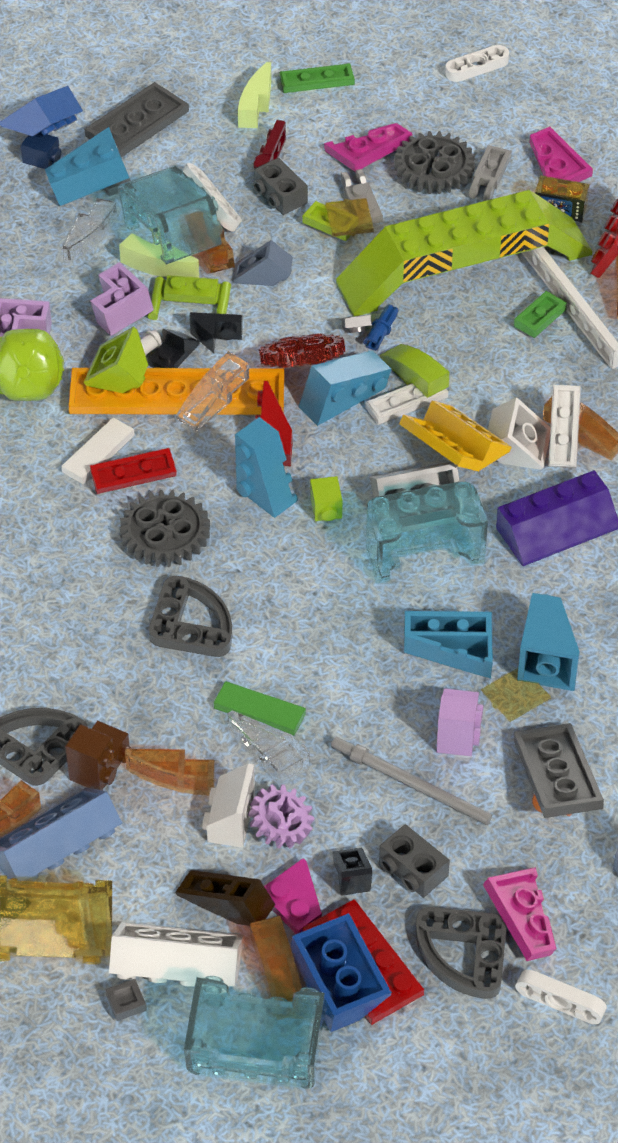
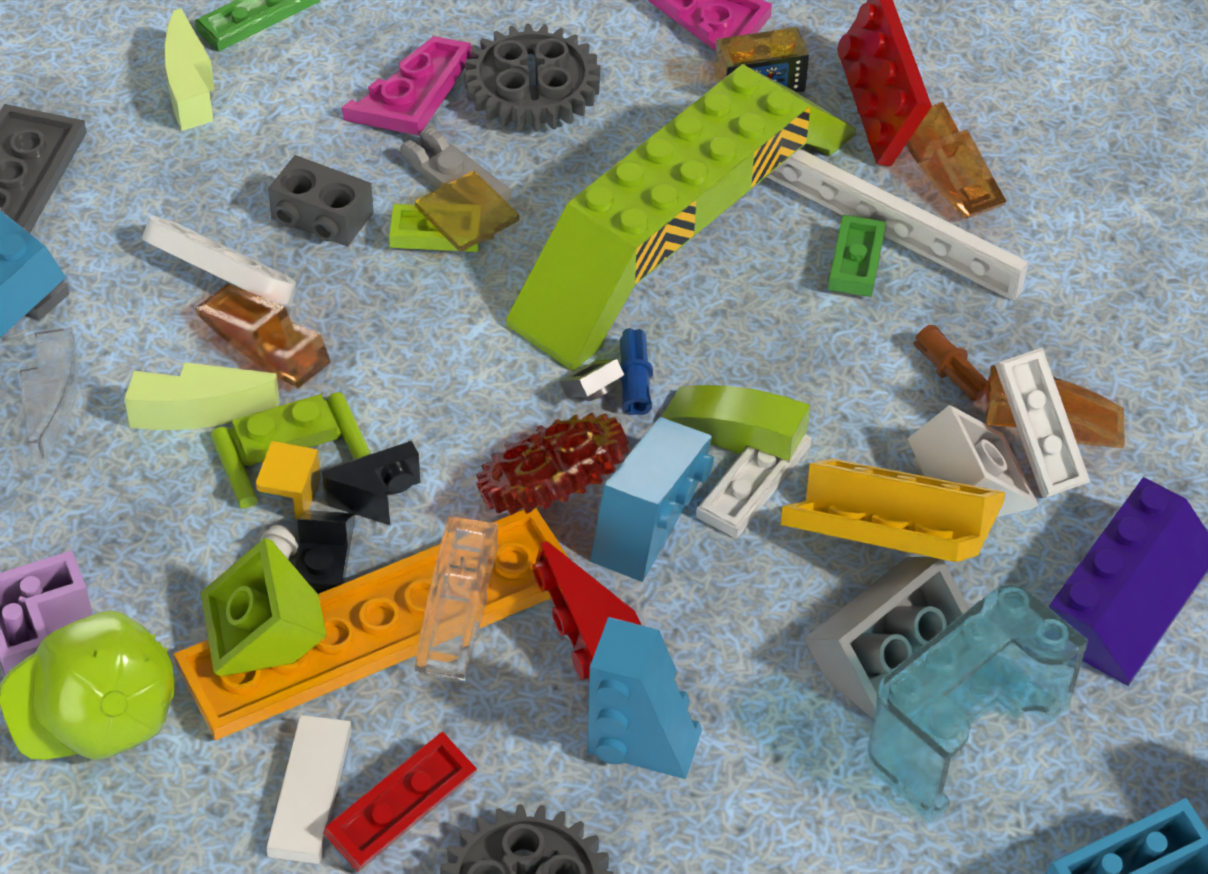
camera: 30 degrees left, 0 degrees up
(122, 300) = (189, 493): lavender brick -> none
(174, 211) = (192, 301): clear light blue windscreen -> none
(177, 309) = (290, 473): none -> yellow panel
(264, 266) = (382, 343): sand blue slope -> none
(275, 141) = (265, 152): dark red hinge -> none
(326, 498) = (757, 708): lime brick -> none
(490, 171) = (623, 61): light grey hinge -> none
(548, 378) = (951, 361): none -> dark orange axle

